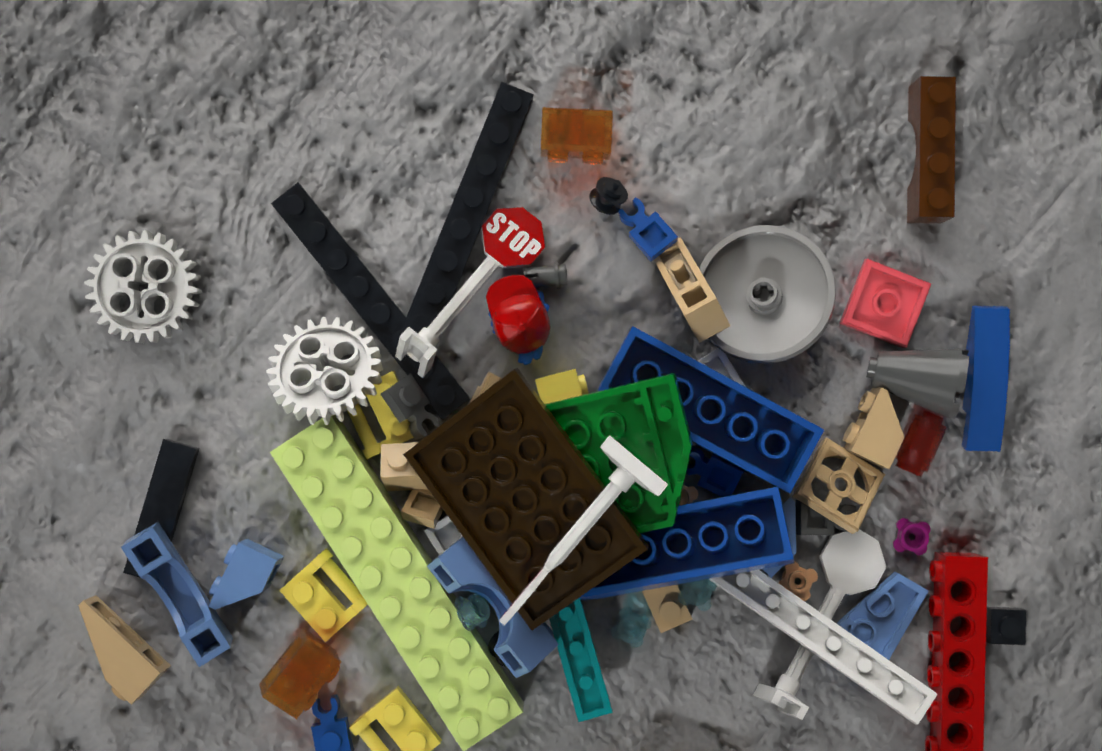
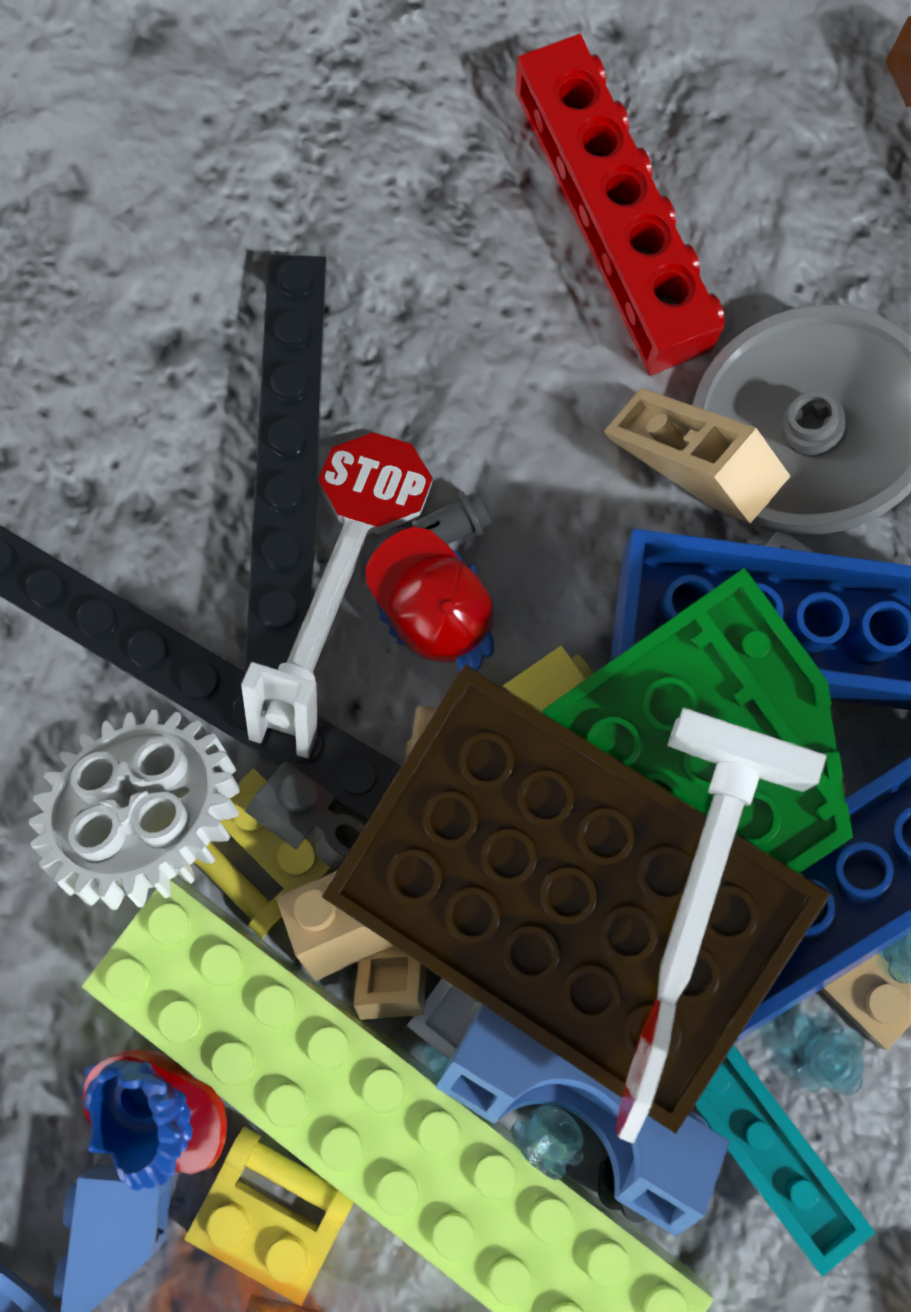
camera: 20 degrees left, 10 degrees down
(283, 527) = (152, 1117): none -> blue hair
(576, 135) = (417, 285): clear orange brick -> none
(608, 195) = (502, 366): black wheel -> none
(649, 233) = (588, 398): blue plate -> none
(699, 34) = (568, 77): none -> red brick
(716, 473) = (870, 736): blue plate -> none

